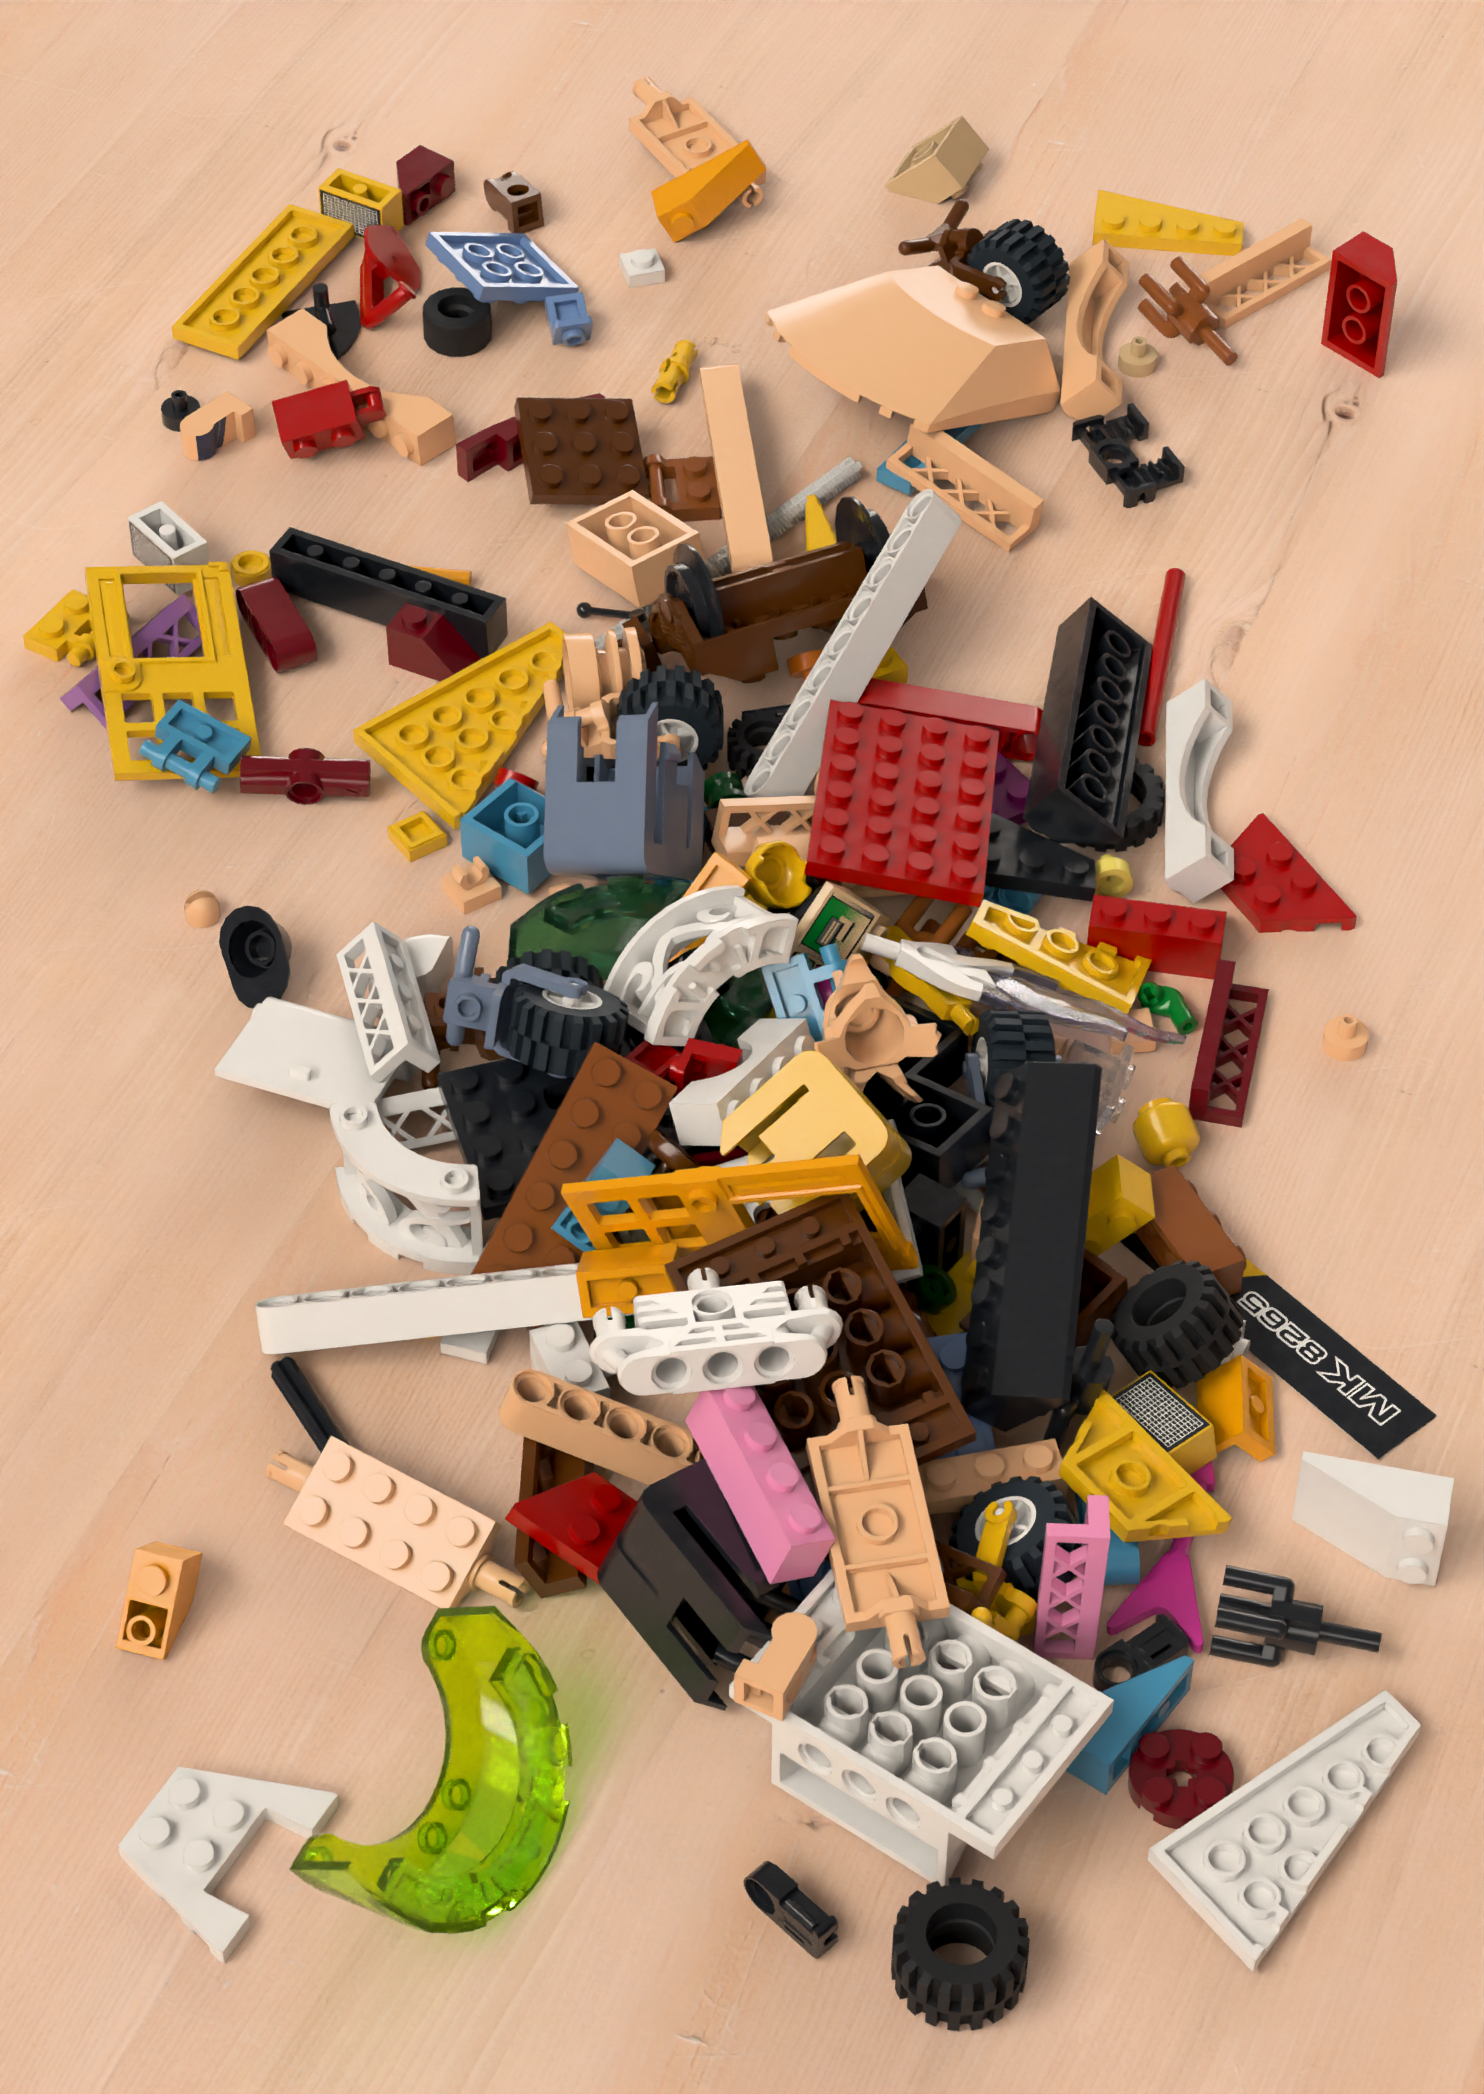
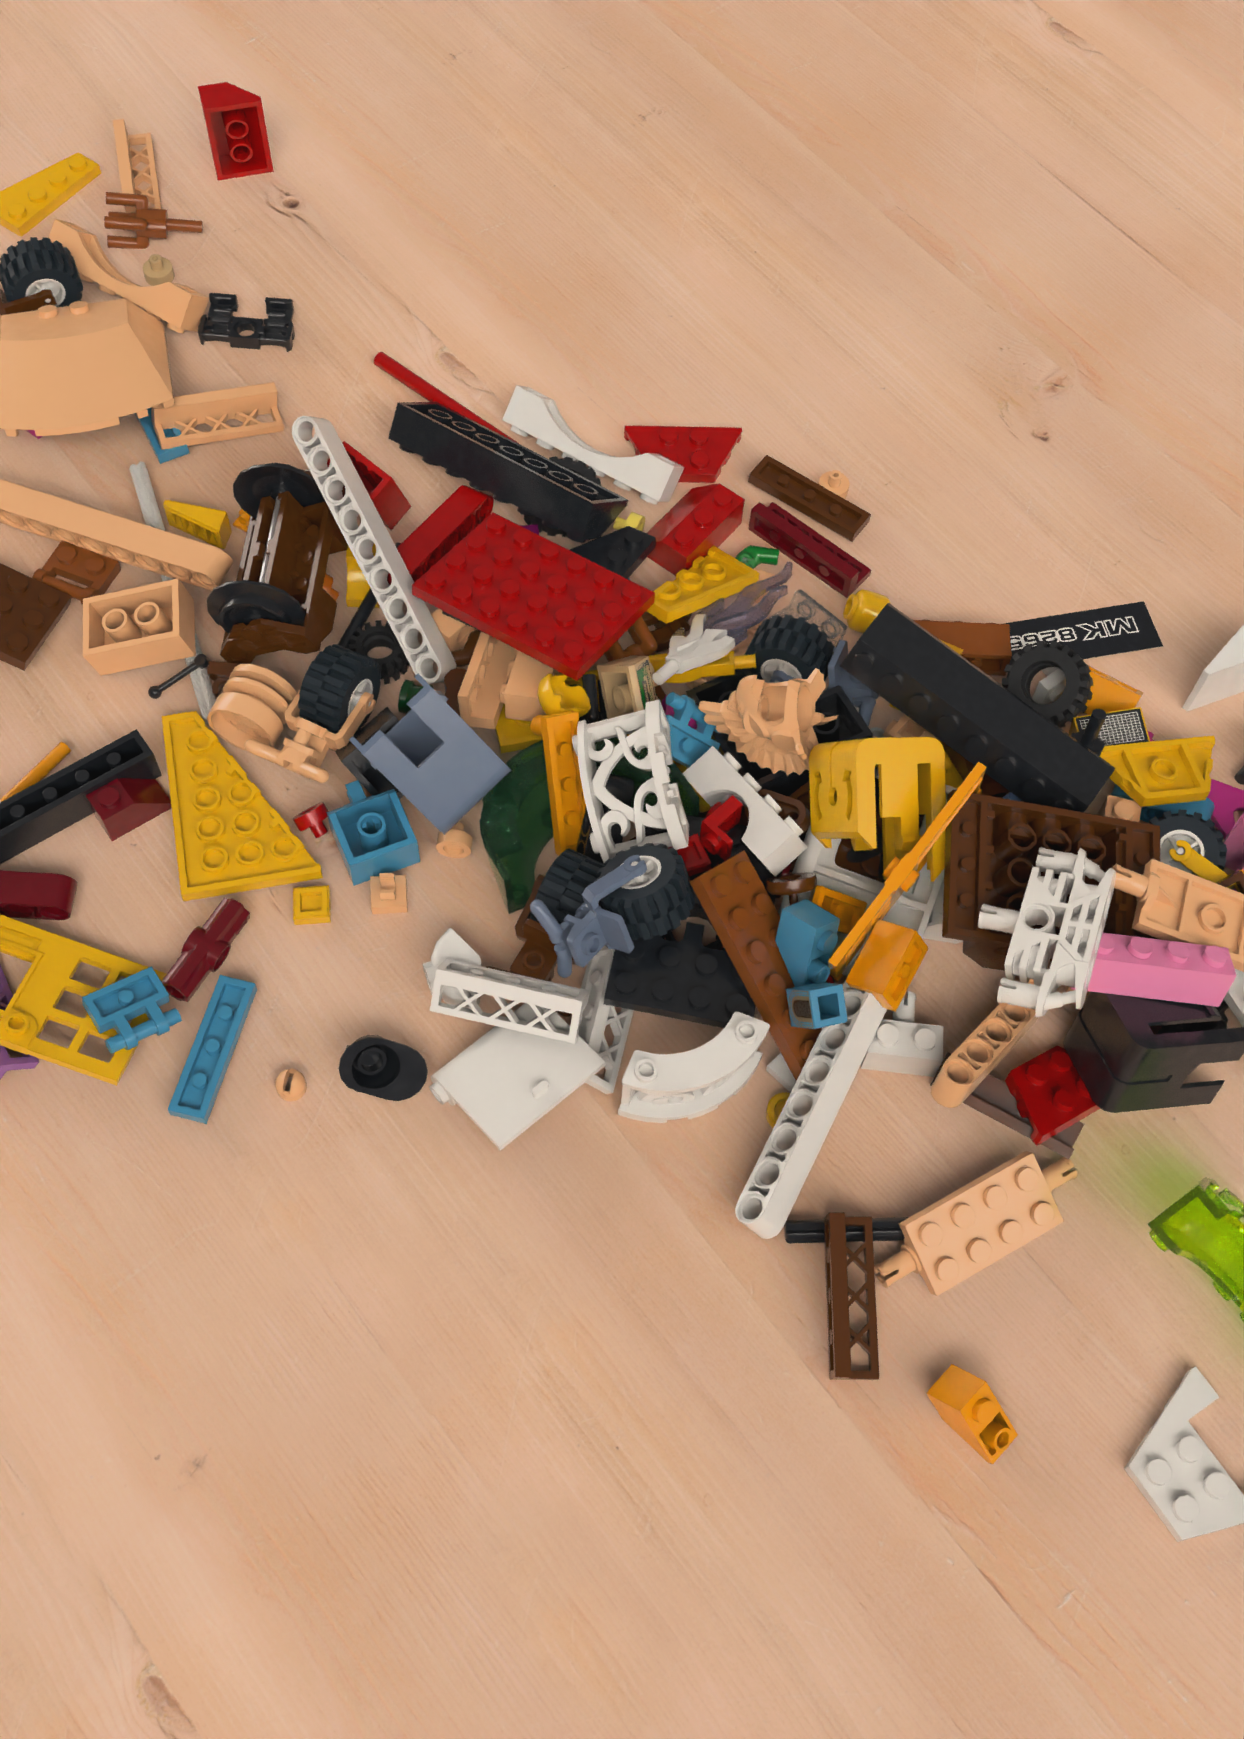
camera: 65 degrees left, 15 degrees up
(201, 833) = (212, 1049): none -> dark azure plate
(224, 1428) = (837, 1297): none -> reddish brown fence
(530, 1230) = (816, 1005): none -> dark azure brick
(957, 627) = (381, 488): none -> red brick
(1301, 1019) = (809, 498): none -> reddish brown plate

